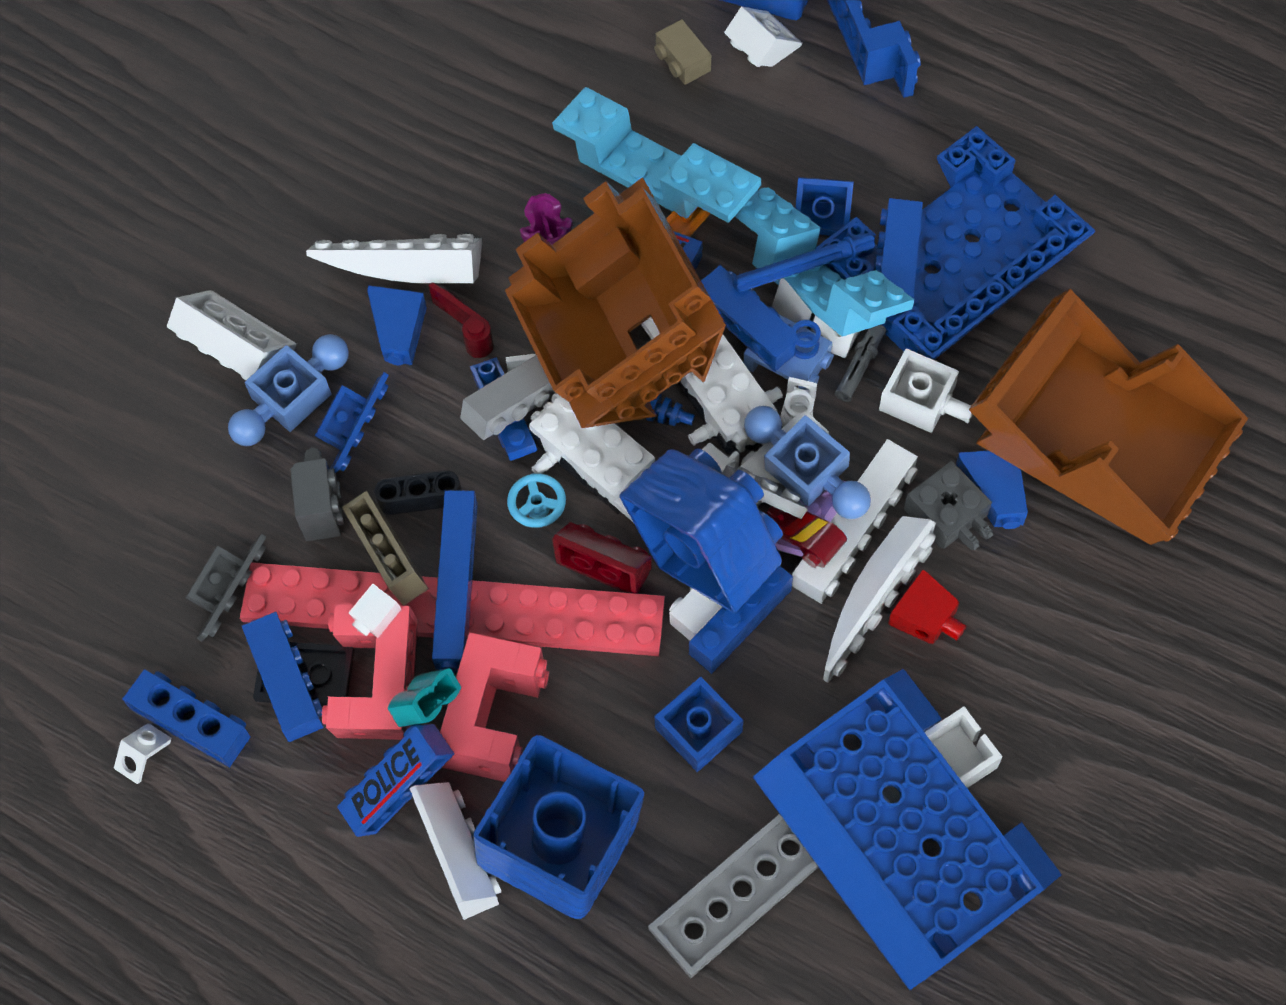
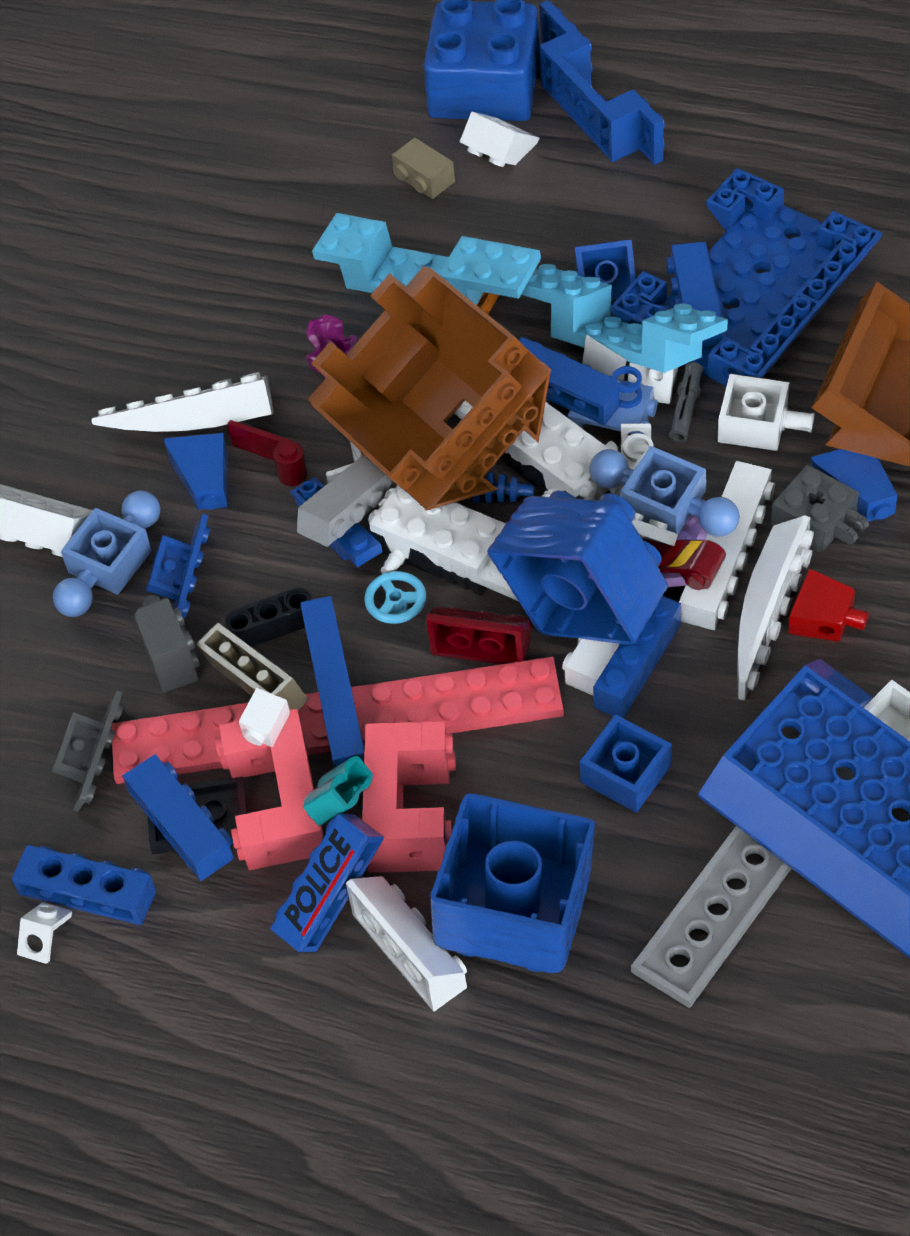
camera: 10 degrees left, 10 degrees down
(847, 248) = (642, 297): blue axle -> none

